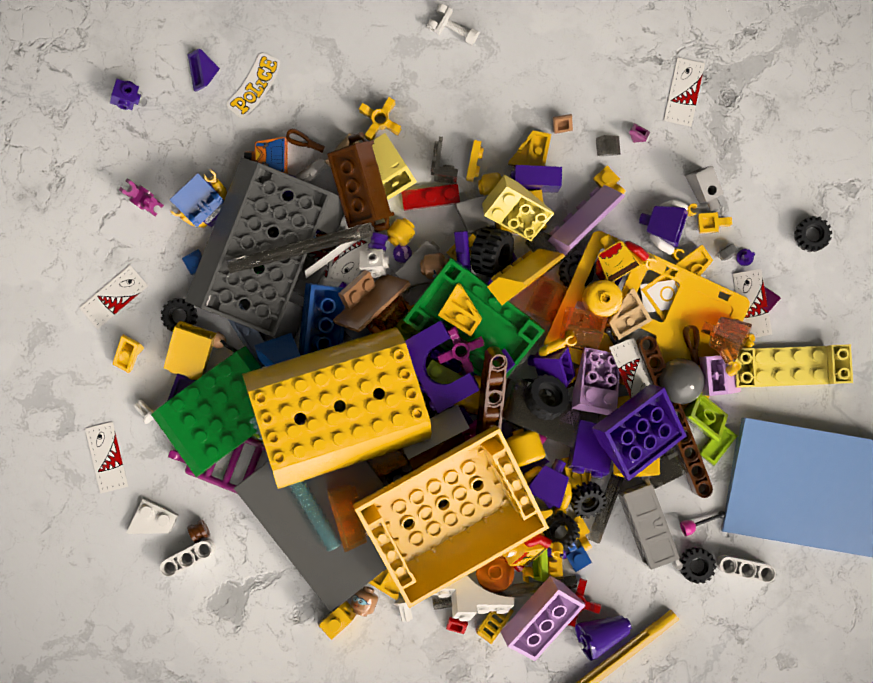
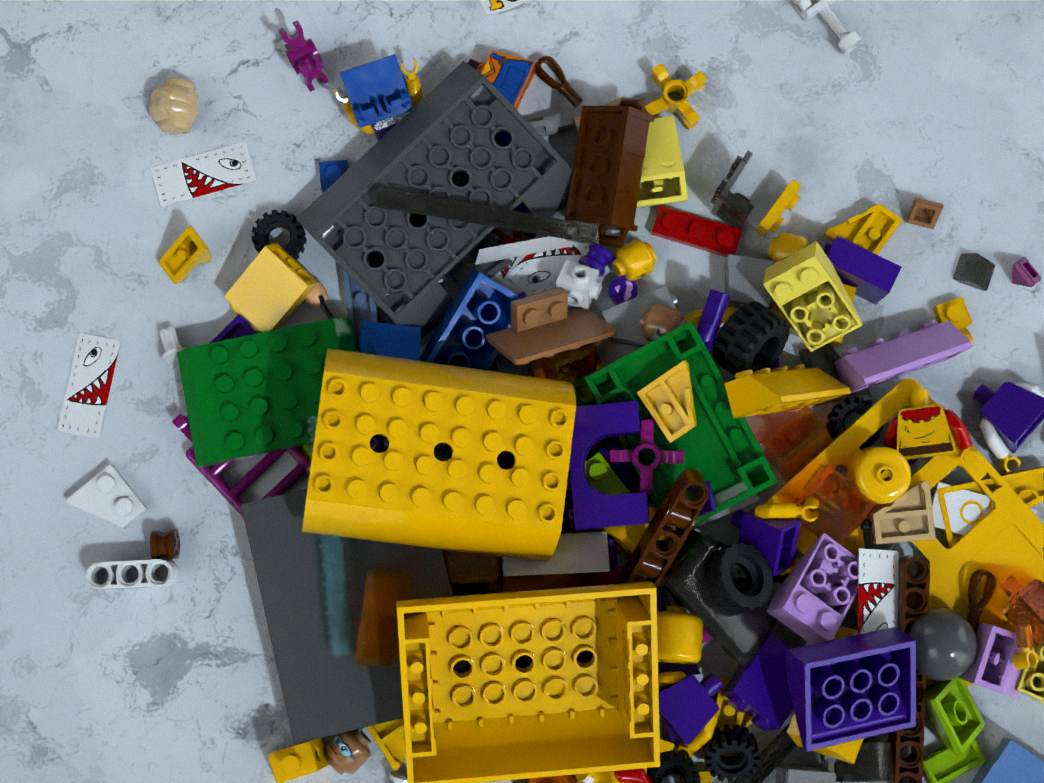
camera: 25 degrees right, 5 degrees down
(76, 263) = (174, 105): none -> tan hair

